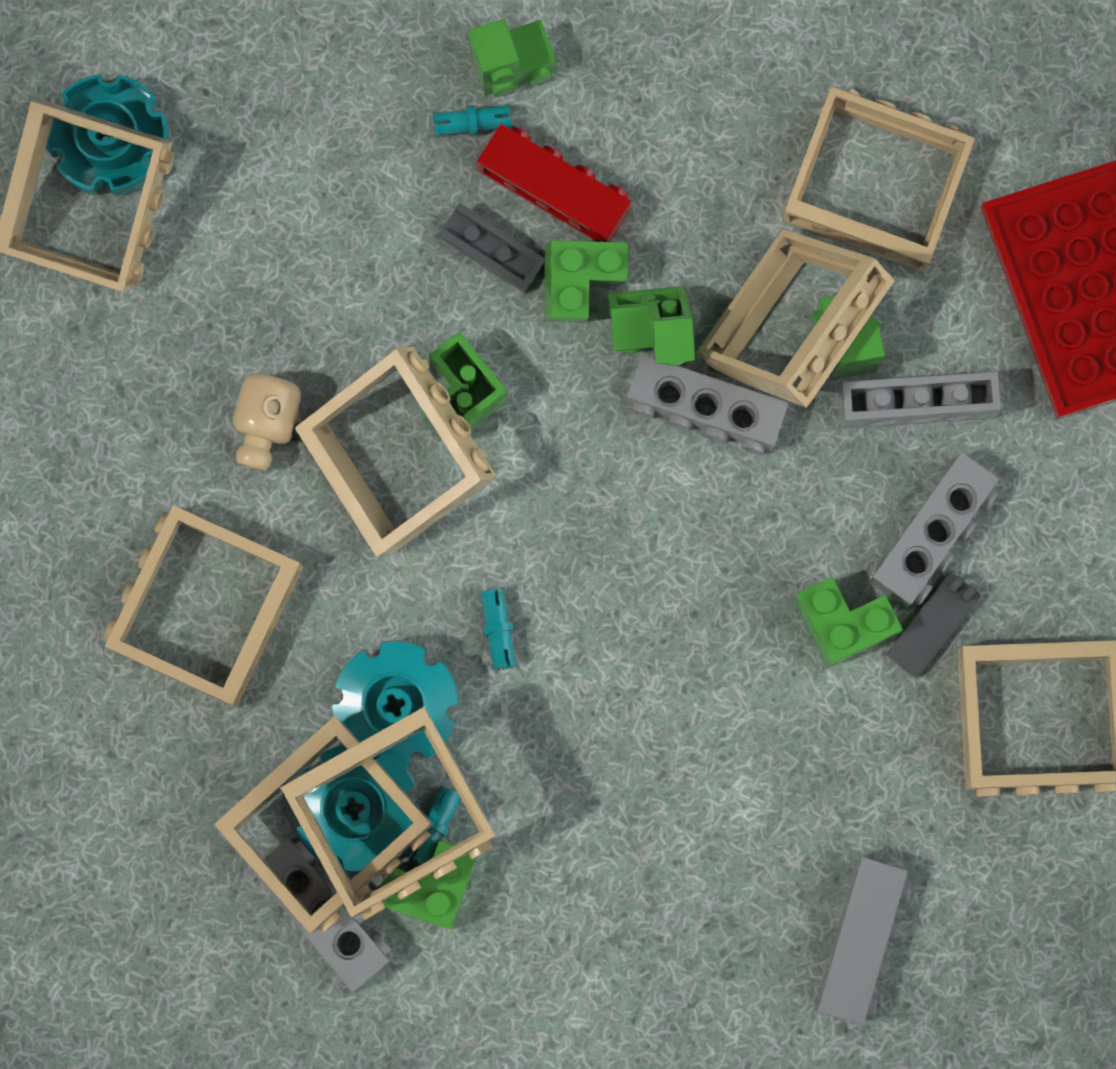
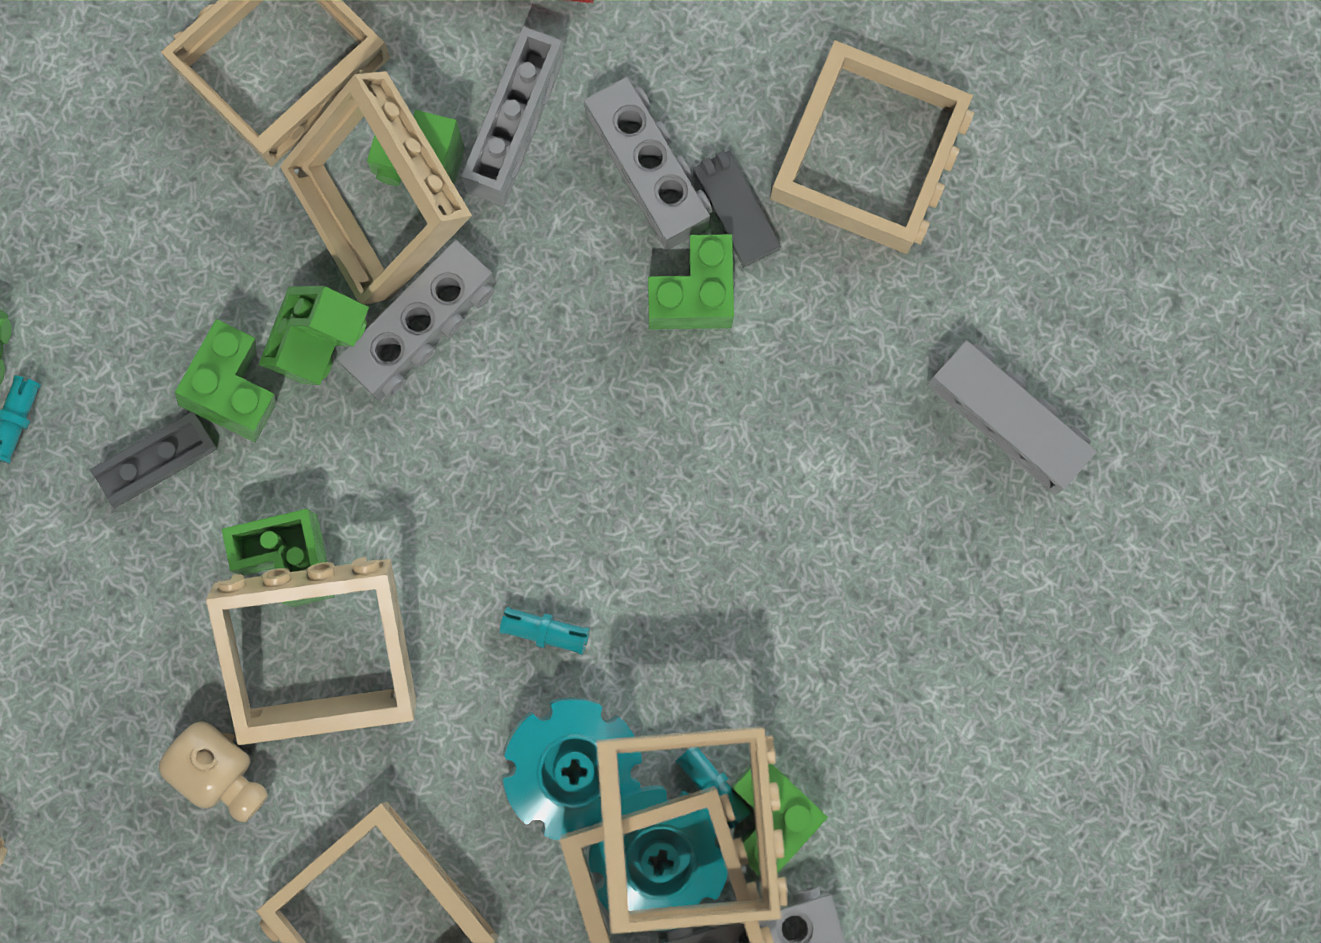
camera: 70 degrees left, 0 degrees up
(553, 184) = (118, 368): red brick -> none

